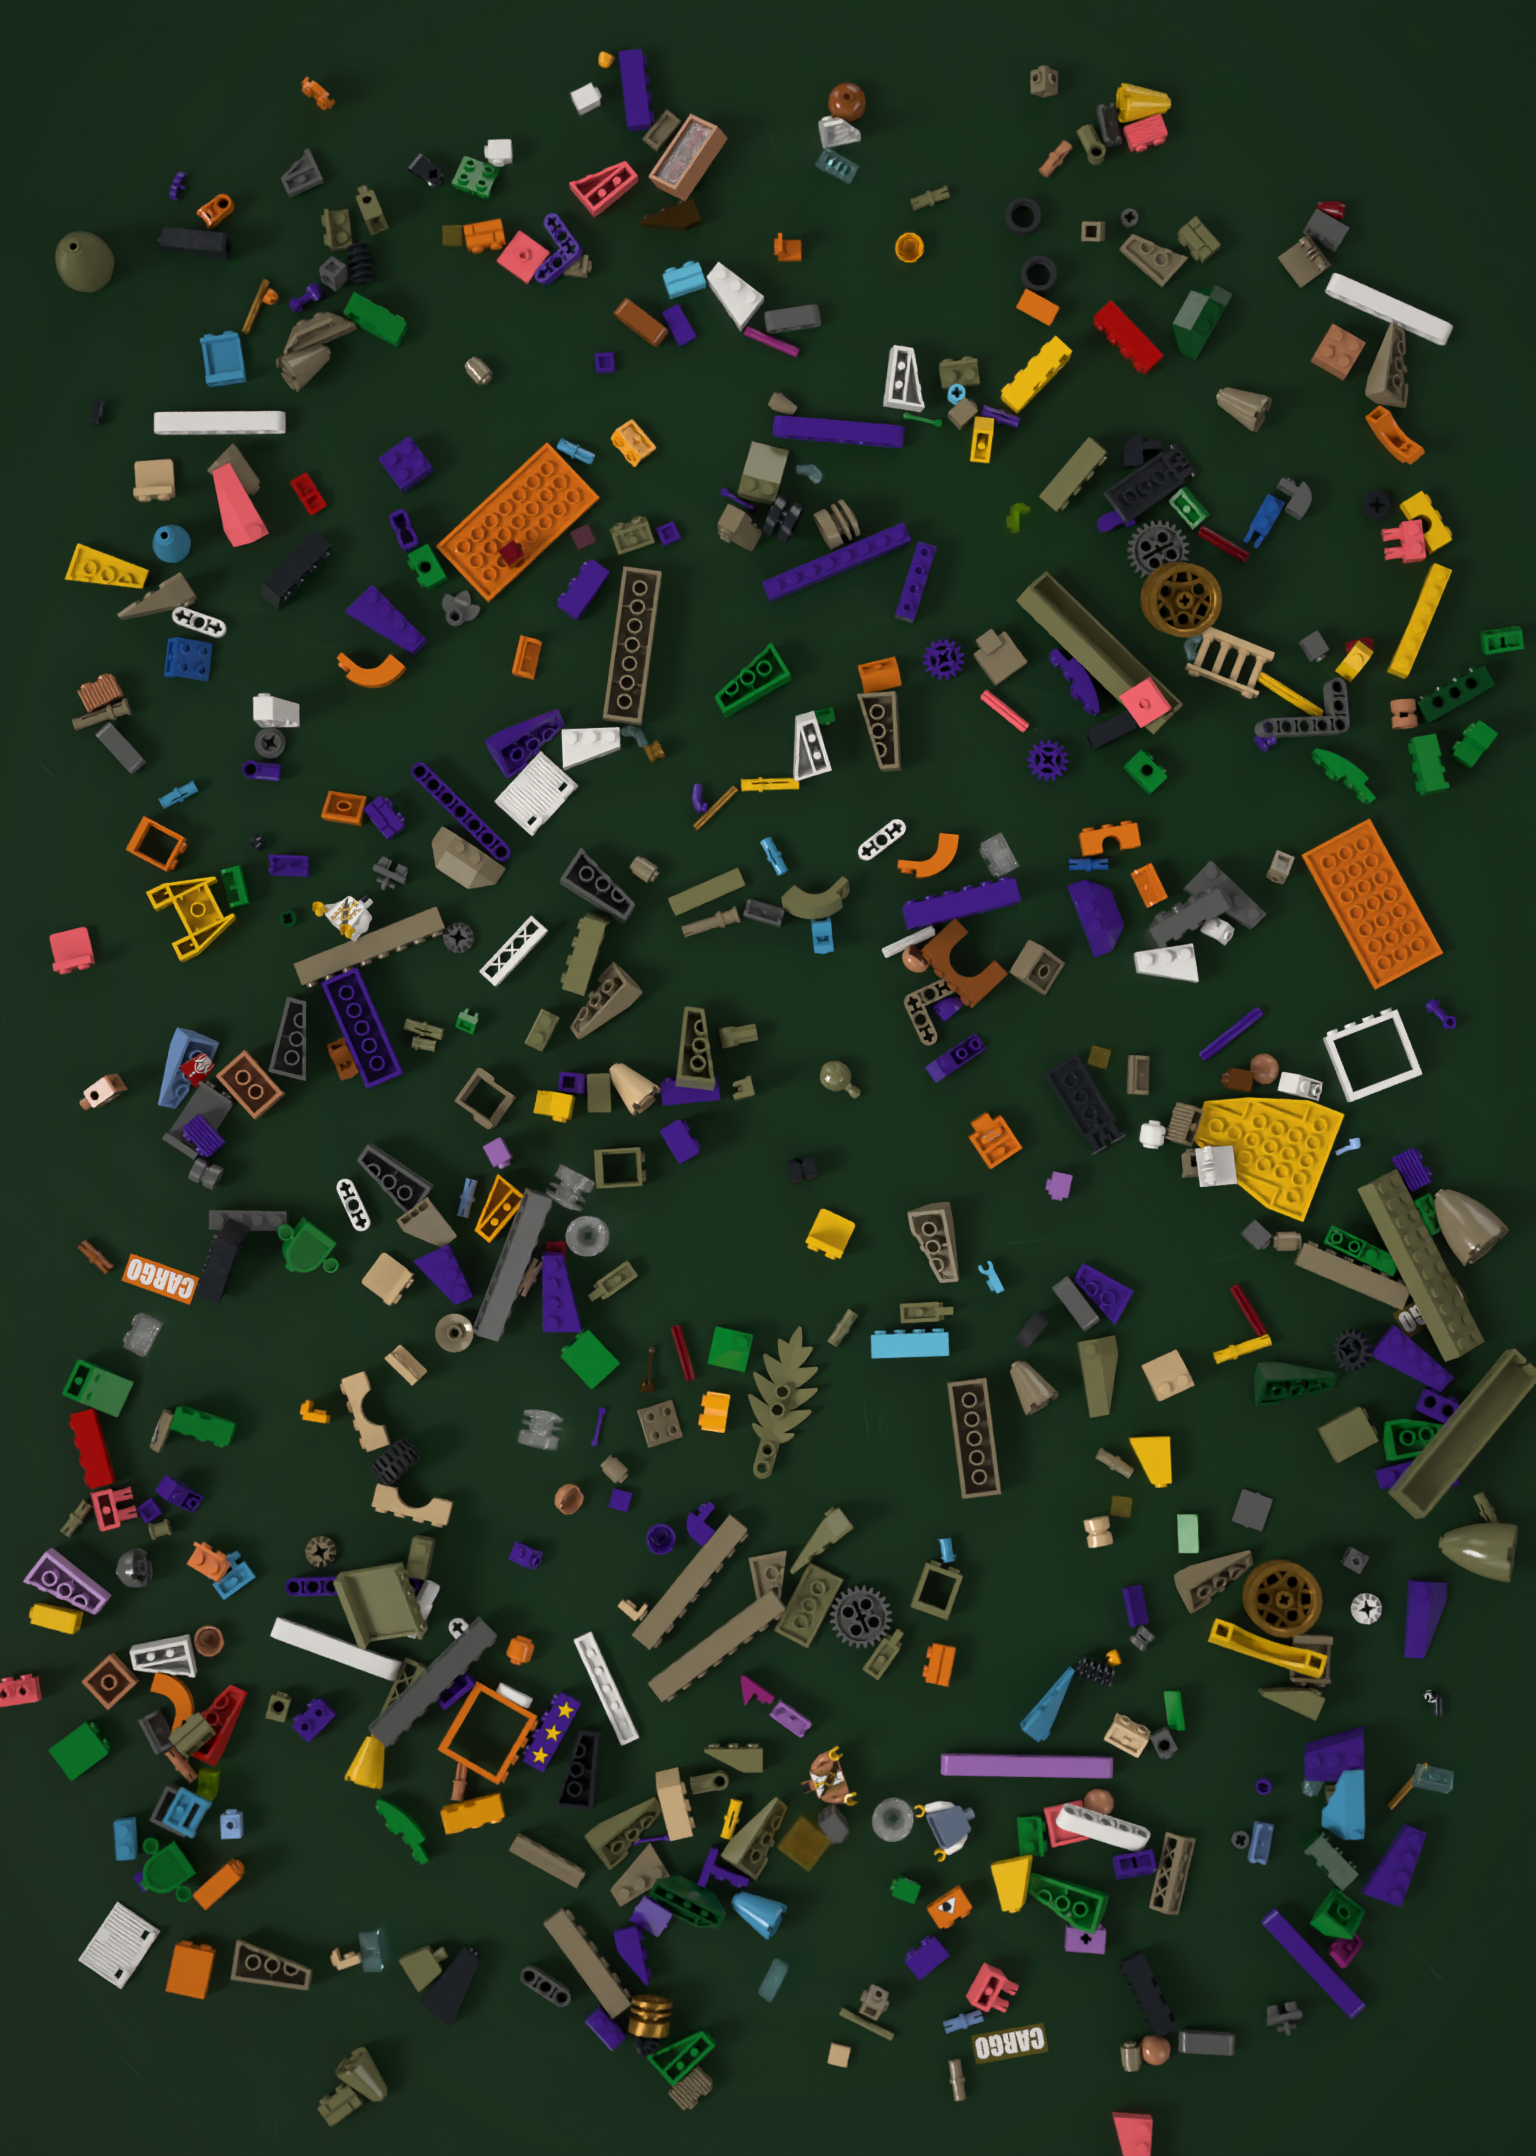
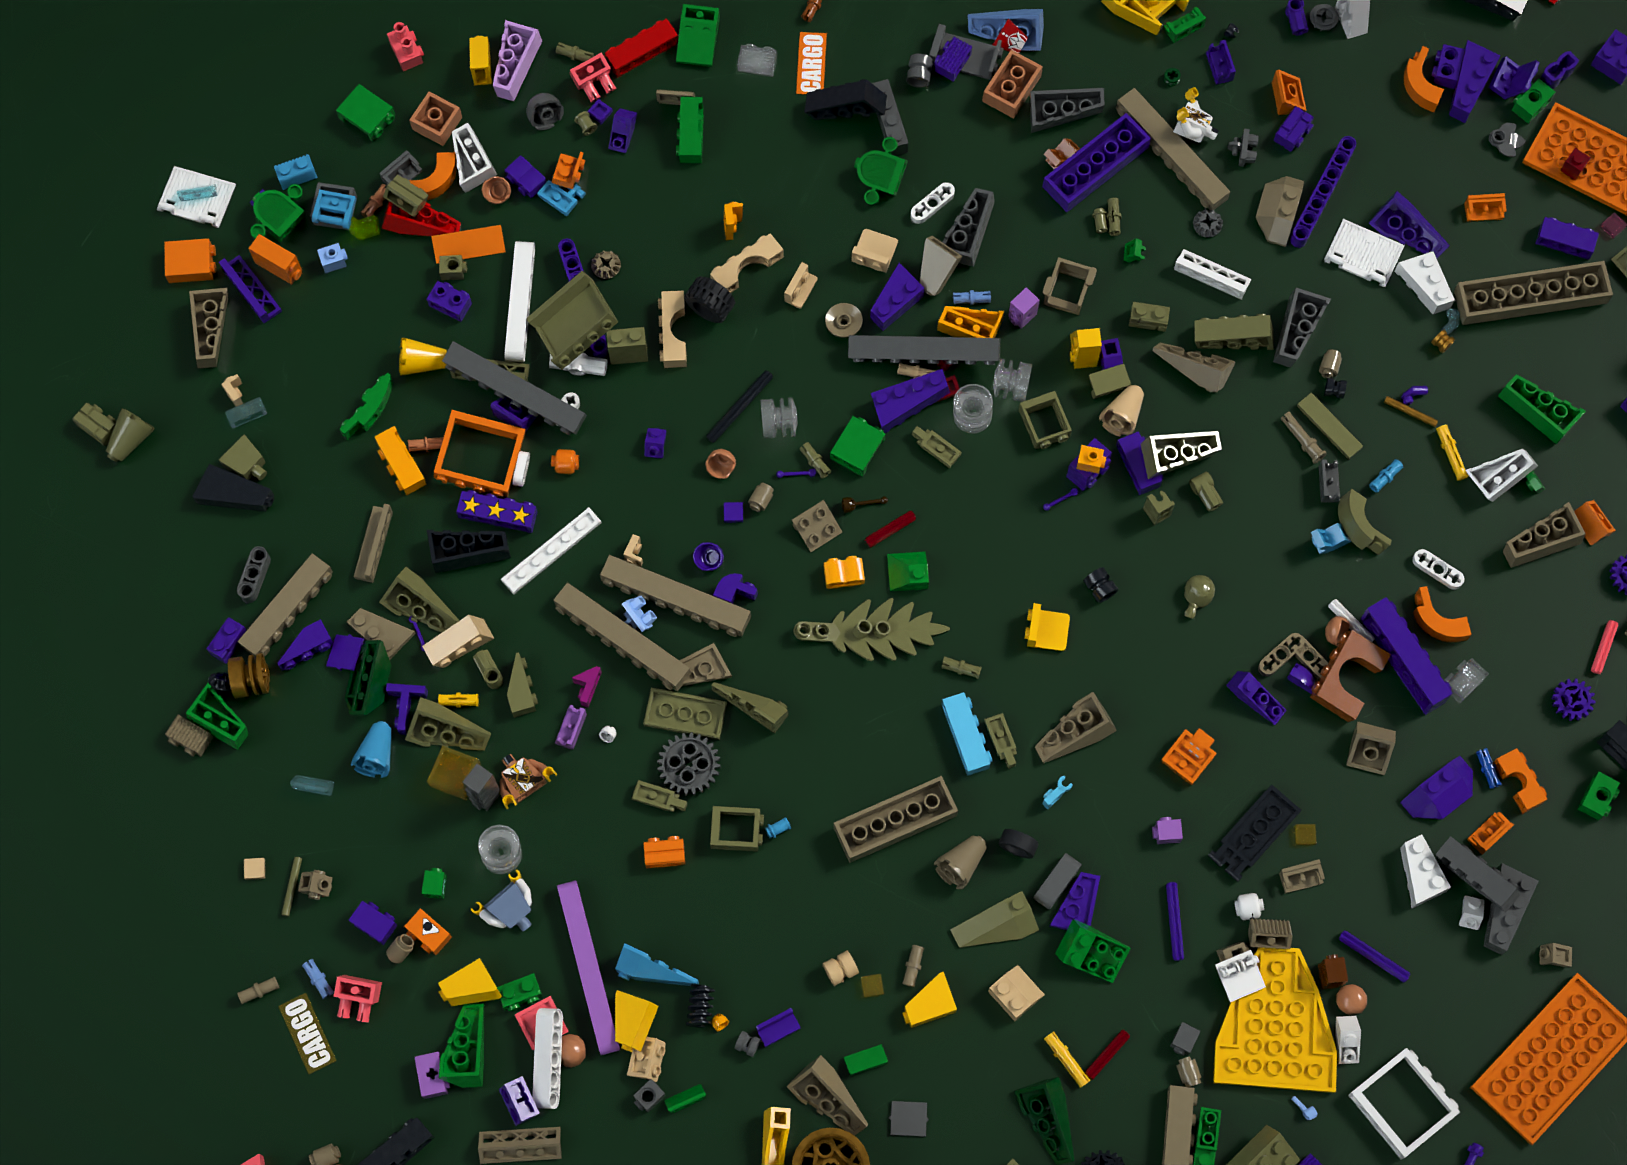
camera: 70 degrees right, 15 degrees down
(116, 1943) = (197, 192): none -> clear light blue slope
(202, 1606) = (525, 177): none -> dark purple brick
(247, 1919) = (245, 290): none -> dark purple fence
(257, 1683) = (469, 243): none -> orange sticker
(366, 635) = (1444, 65): none -> dark purple brick
(397, 579) = (1513, 79): none -> dark purple bracket
(512, 1461) = (739, 406): none -> black axle
(591, 1404) = (815, 460): none -> olive pin
(672, 869) = (1335, 388): none -> black wheel
(683, 1143) = (1091, 459): none -> light orange brick
(698, 1162) = (1073, 492): none -> dark purple hinge
(698, 1625) = (636, 616): none -> light blue hips
(807, 1685) = (604, 734): none -> white hinge
(959, 1937) = (400, 948): none -> dark tan brick
(1090, 1739) = (632, 1020): none -> yellow slope
(1144, 1206) = (1175, 921): none -> dark purple axle
(1151, 1294) = (1092, 951): none -> green slope

